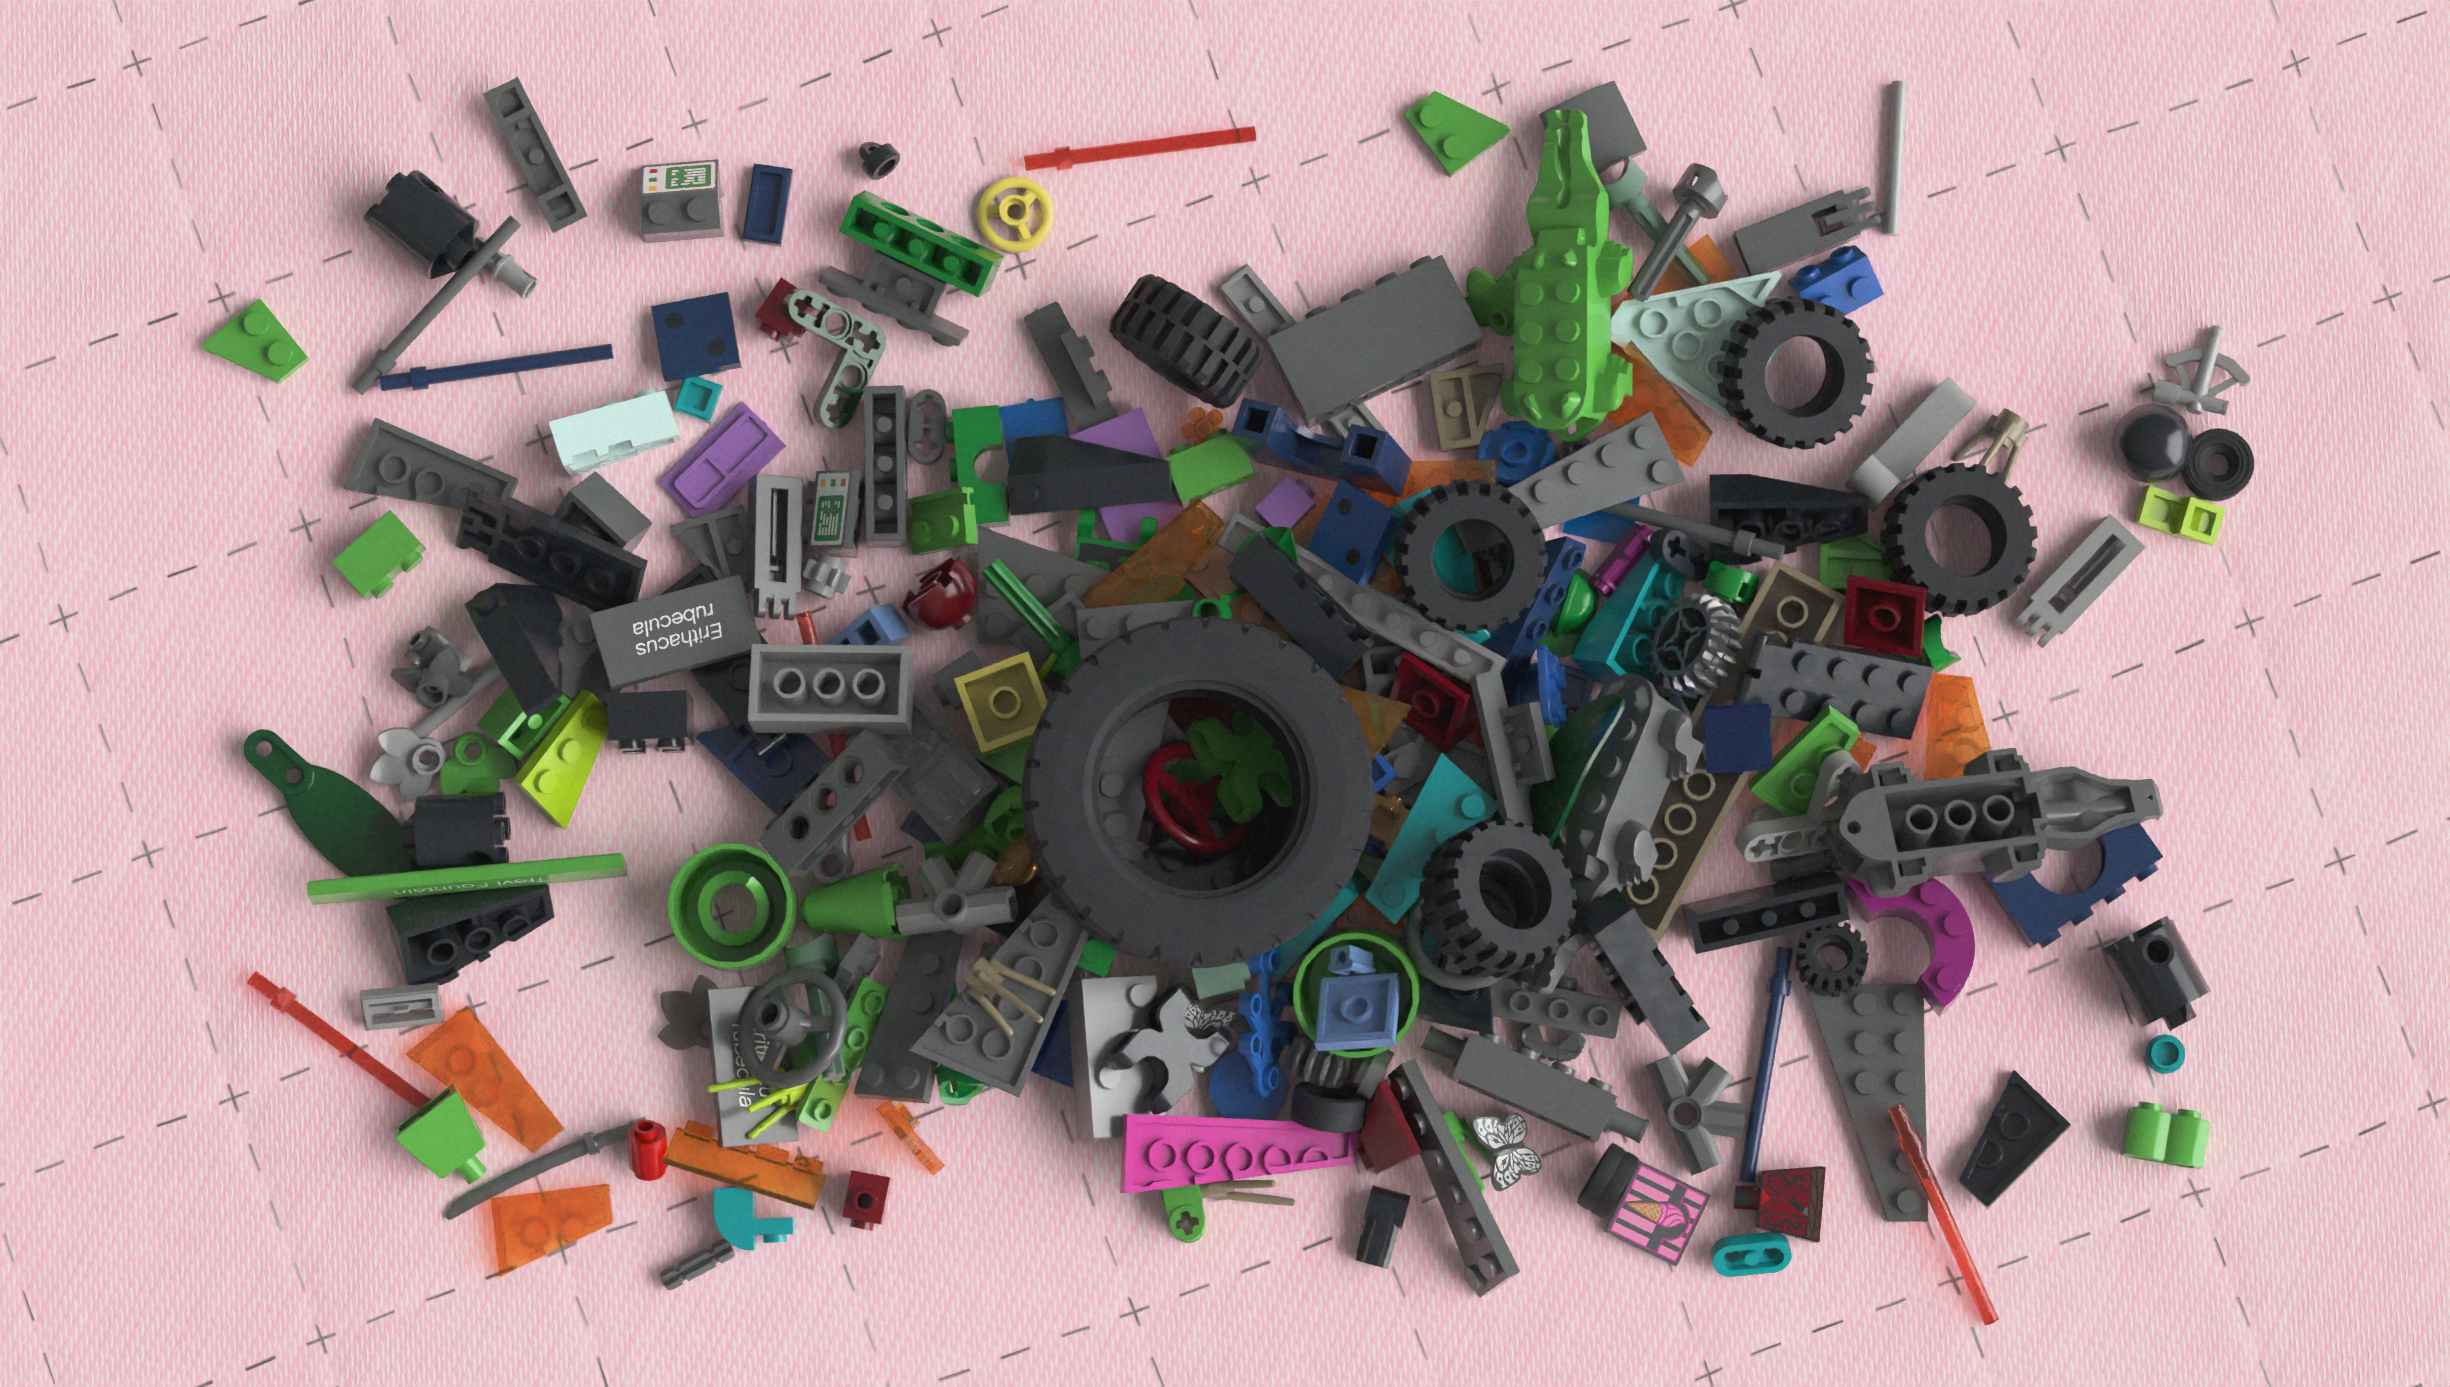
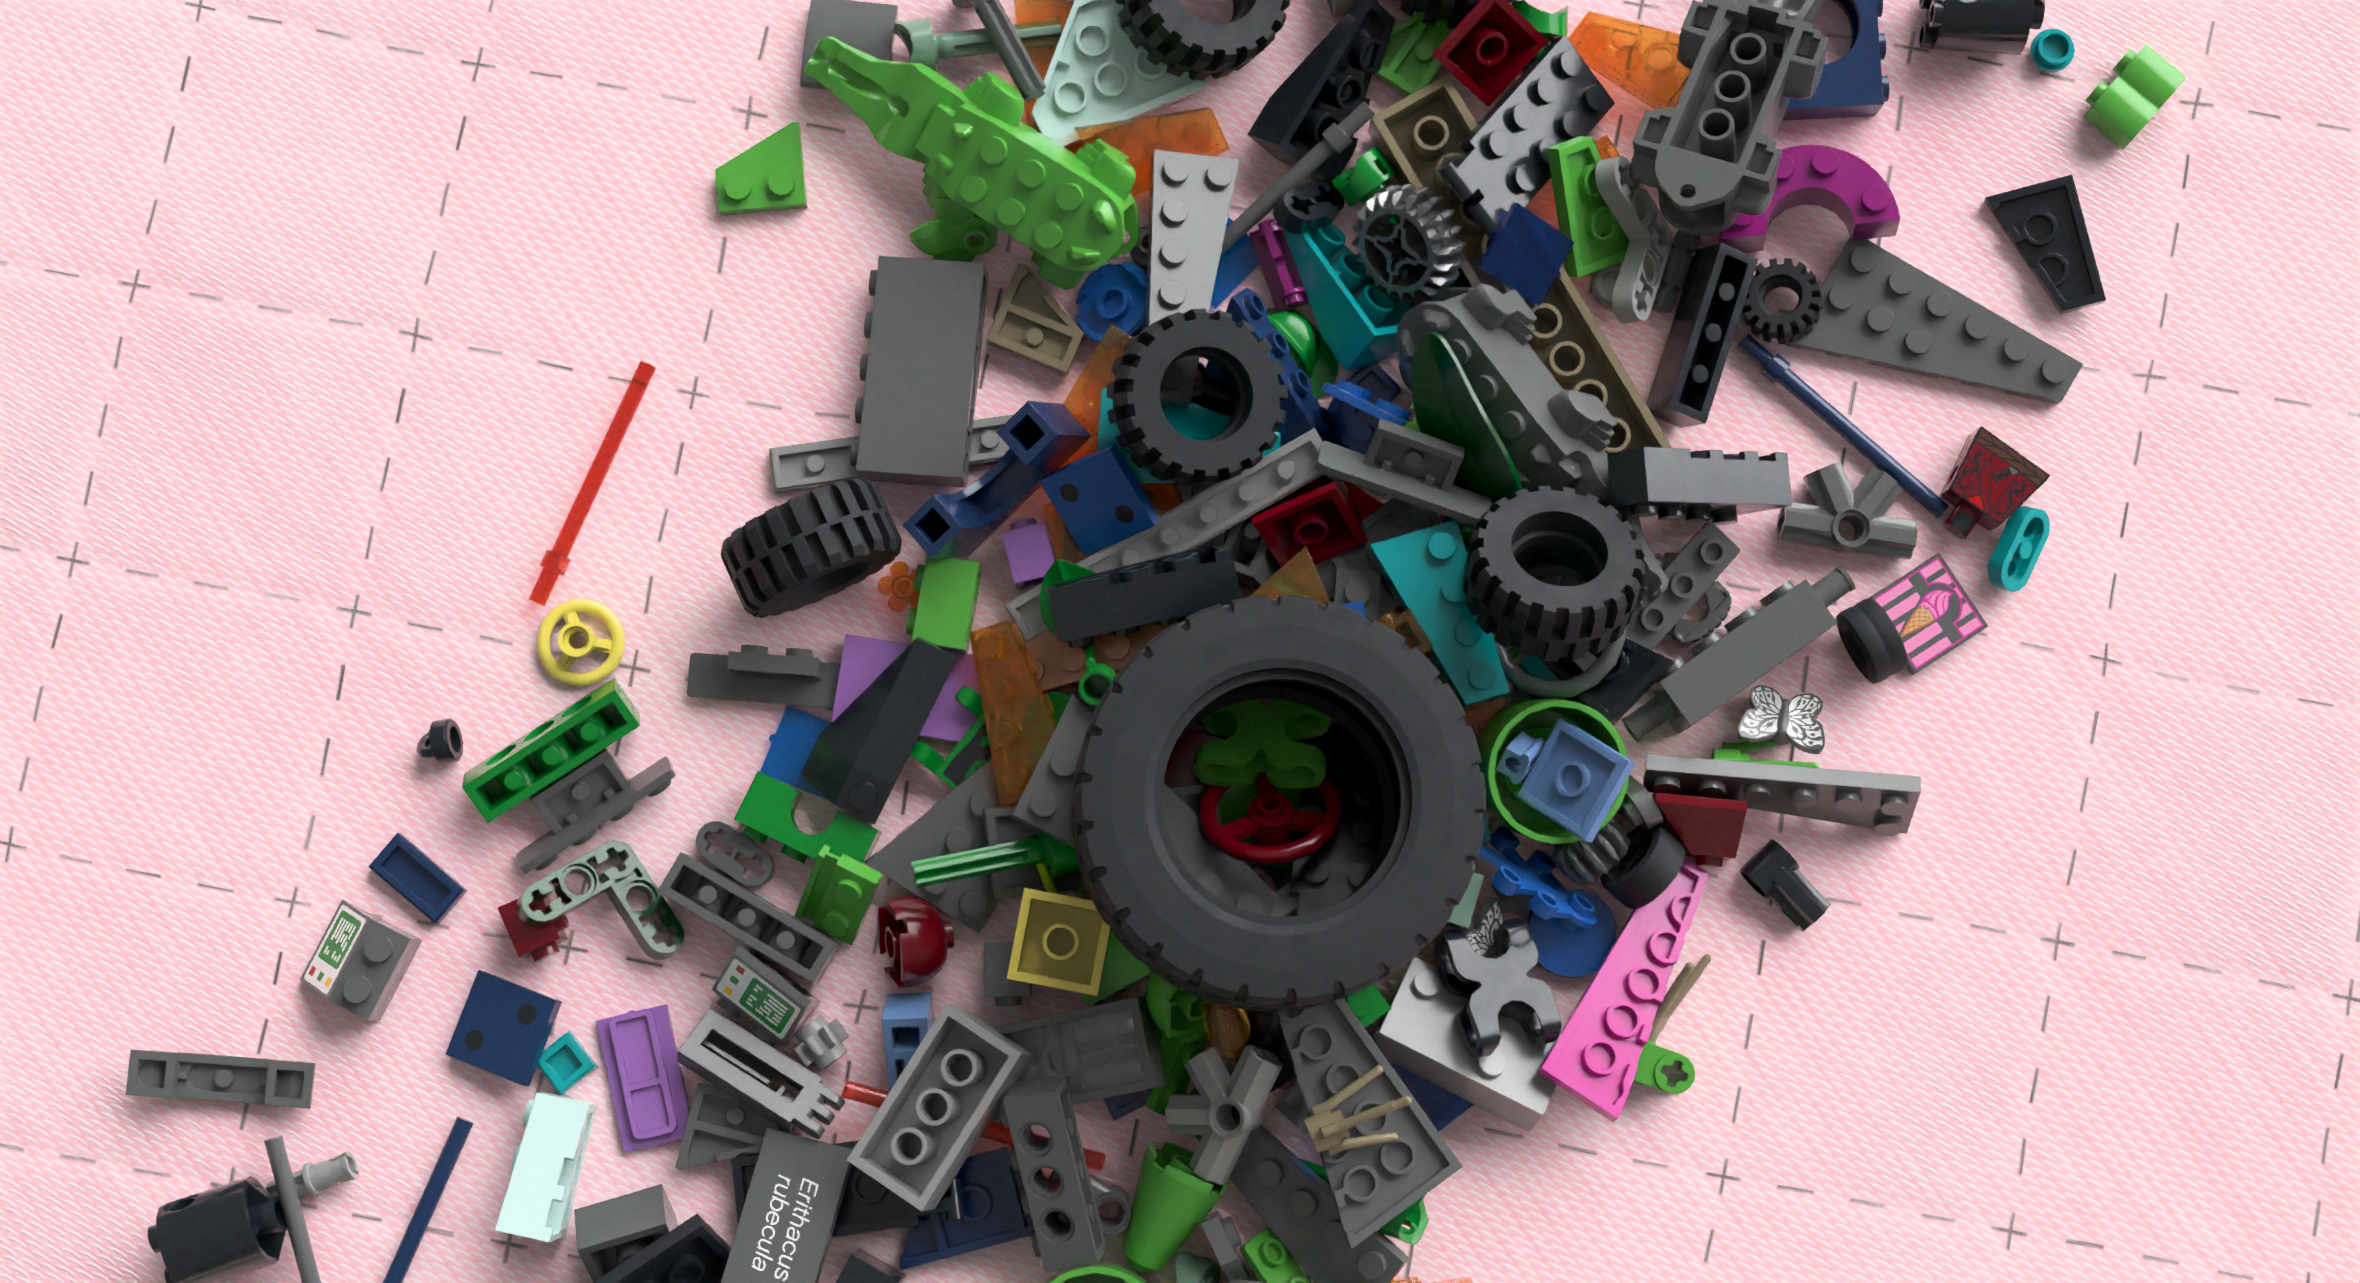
camera: 65 degrees left, 0 degrees up
(1911, 1144) = (2007, 332): clear red bar -> none

